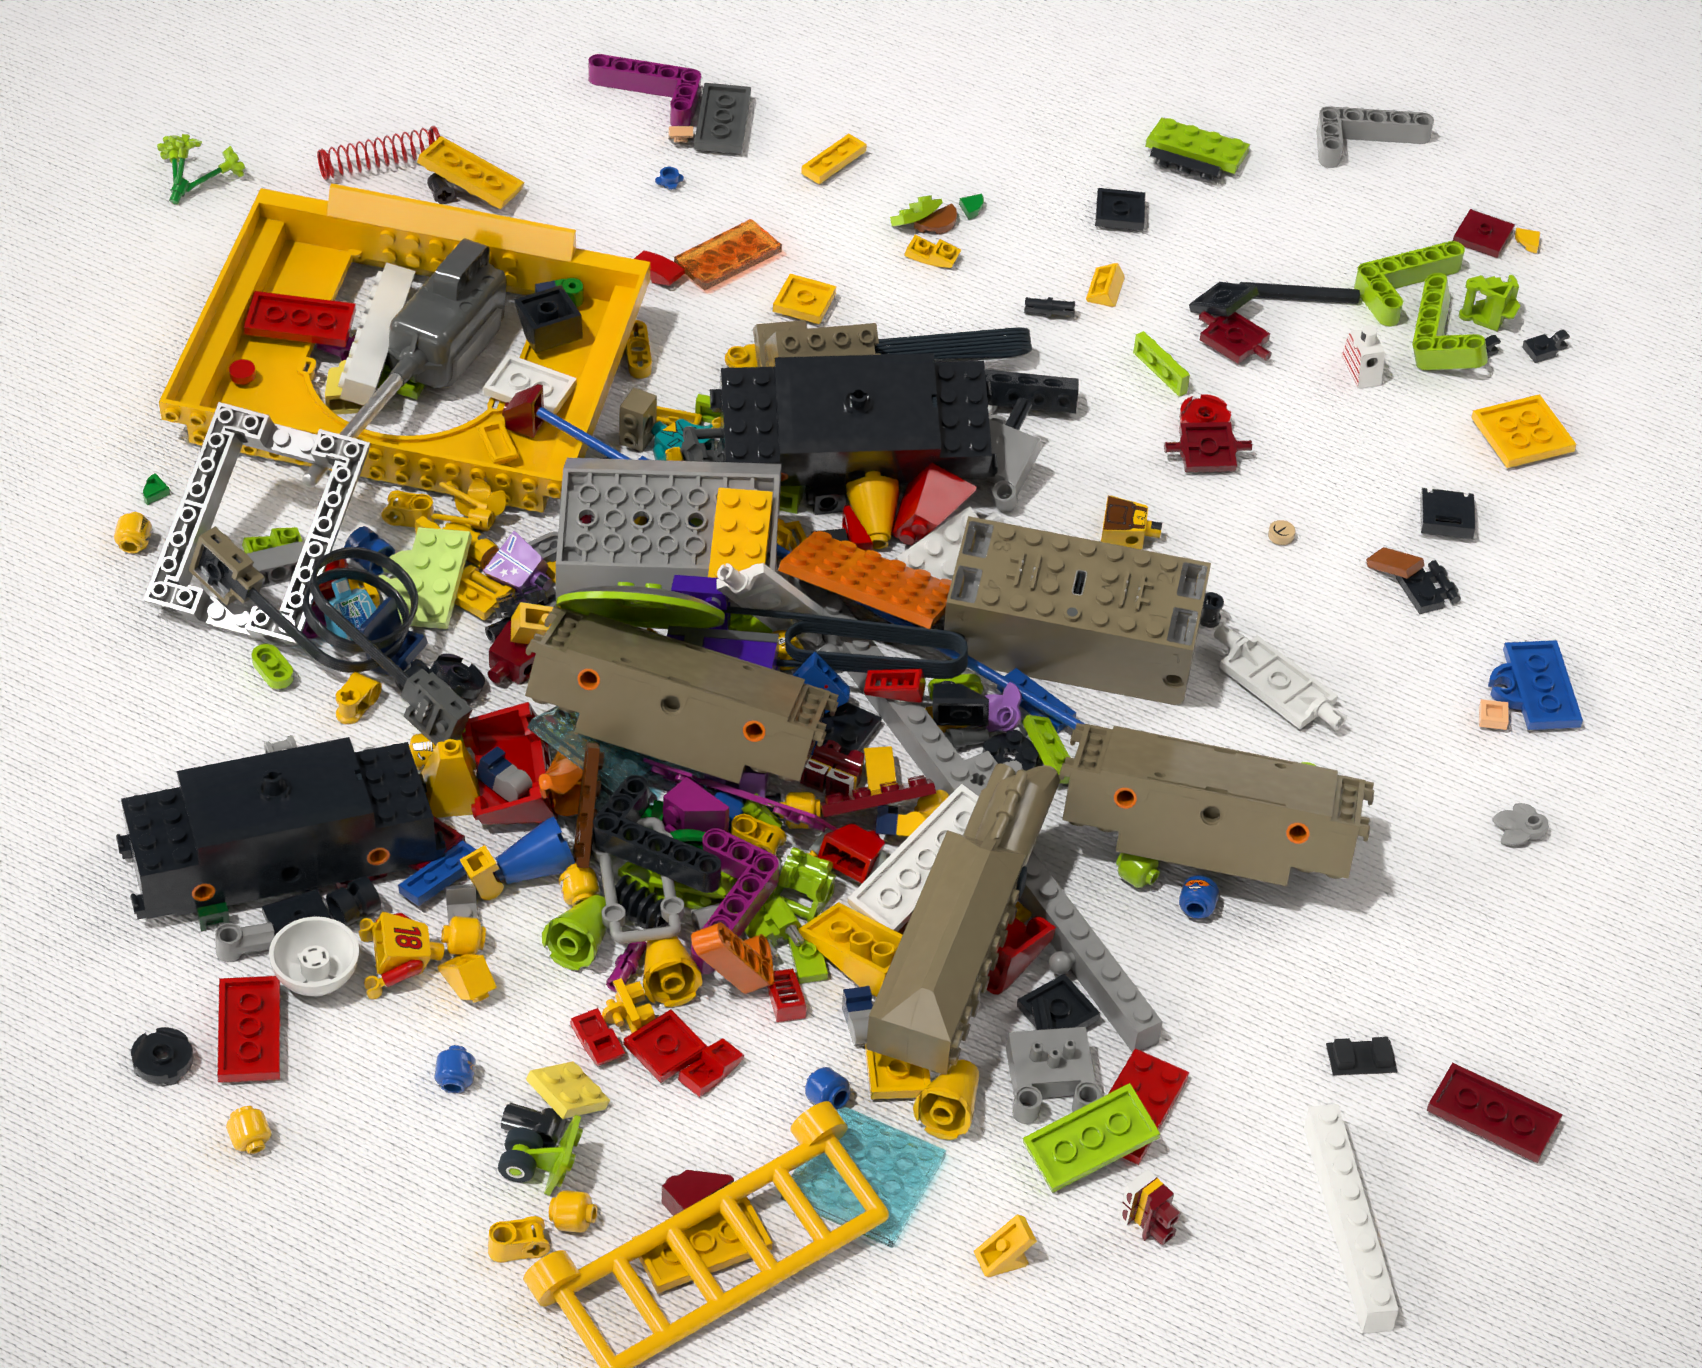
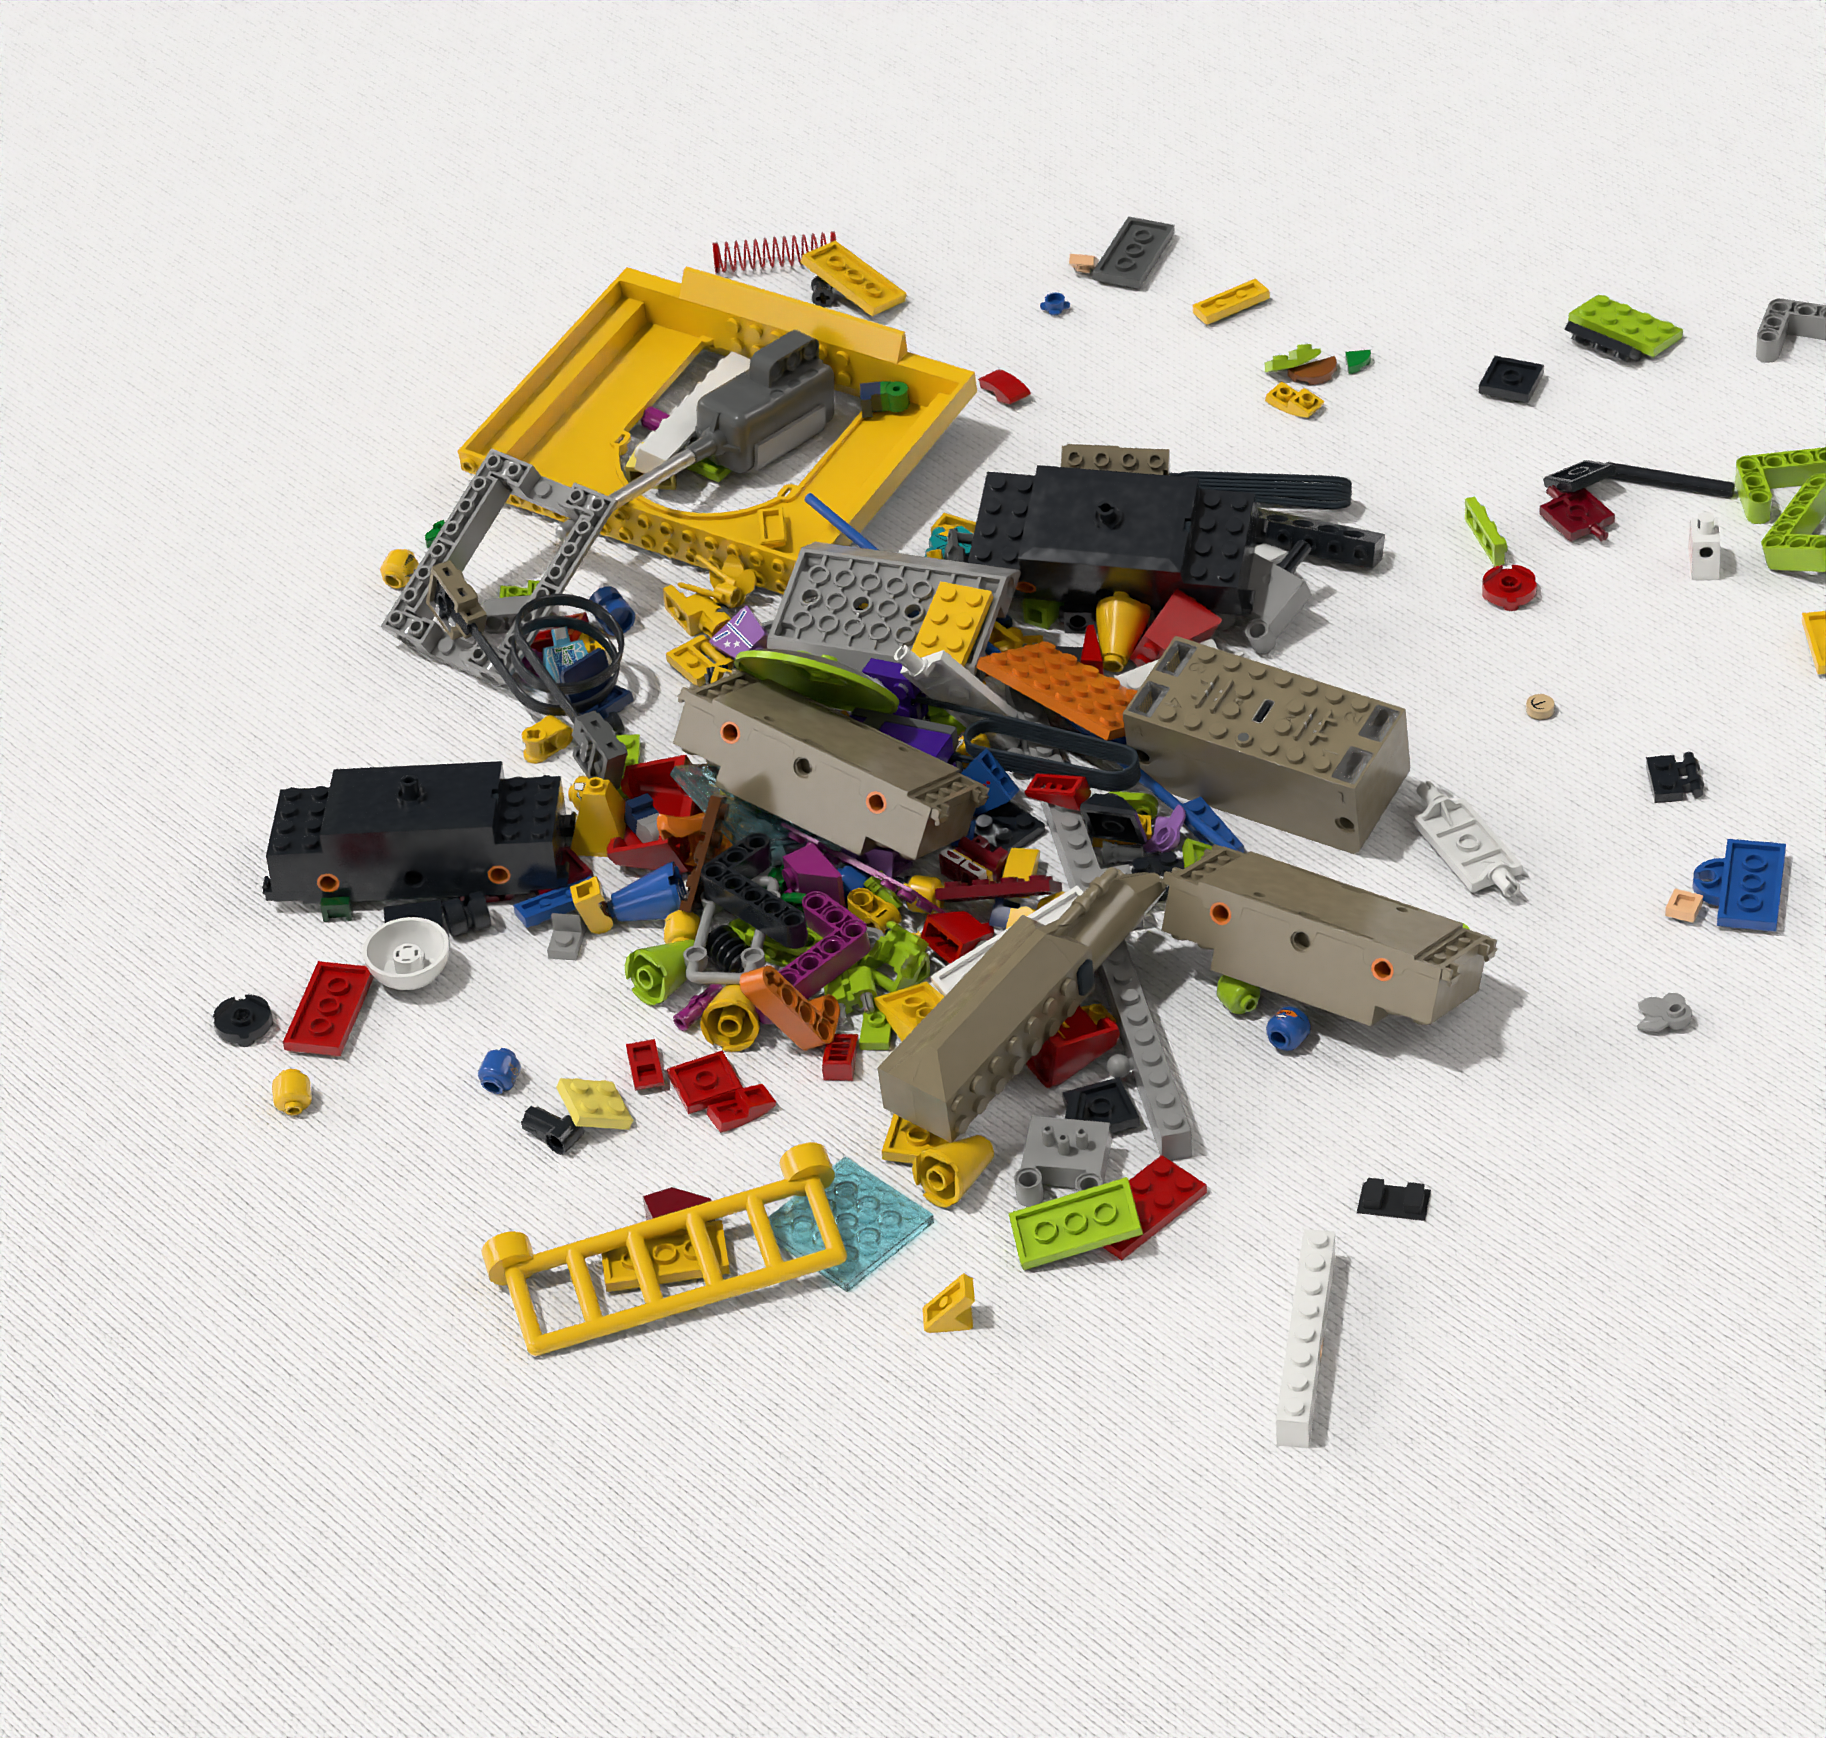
camera: 25 degrees right, 5 degrees down
(176, 147) = (580, 229): lime plant -> none
(233, 940) = (345, 932): light grey piece -> none
(242, 371) = (555, 436): red tile -> none
(277, 670) = (480, 702): lime plate -> none
(300, 318) = (627, 393): red plate -> none
(400, 949) = (490, 961): torso -> none
(407, 508) = (662, 575): yellow piece -> none
(436, 570) = (657, 639): yellowish green plate -> none
(463, 680) = (645, 732): black plate -> none
(463, 935) = (555, 958): yellow head -> none
(468, 976) = (545, 995): yellow slope -> none
(518, 374) = (822, 476): white plate -> none
(518, 1239) = (489, 1220): yellow piece -> none
(522, 411) = (794, 501): dark red slope -> none
(526, 1153) = (536, 1149): plate -> none
(549, 318) = (861, 417): black slope -> none
(572, 1211) = (554, 1207): yellow head -> none
(624, 1007) = (678, 1044): yellow hips -> none
(637, 418) = (916, 520): dark tan brick -> none
(644, 355) = (956, 467): yellow beam -> none
(650, 78) = (1097, 214): magenta beam -> none
(728, 254) = (1081, 381): clear orange plate -> none
(804, 298) = (1140, 429): yellow plate -> none
(829, 1086) = (840, 1141): blue head -> none
(1049, 307) = (1392, 464): black pin -> none
(1106, 285) = (1464, 451): yellow slope -> none
(1127, 523) = (1376, 676): torso -> none
(1150, 1206) = (1103, 1290): dark red hips -> none
(1208, 447) = (1495, 615): dark red plate -> none
(1211, 610) = (1429, 767): black bush -> none
(1395, 562) = (1645, 748): dark orange tile -> none
(1450, 507) = (1728, 702): black container -> none
(1494, 1112) = (1504, 1270): dark red plate -> none

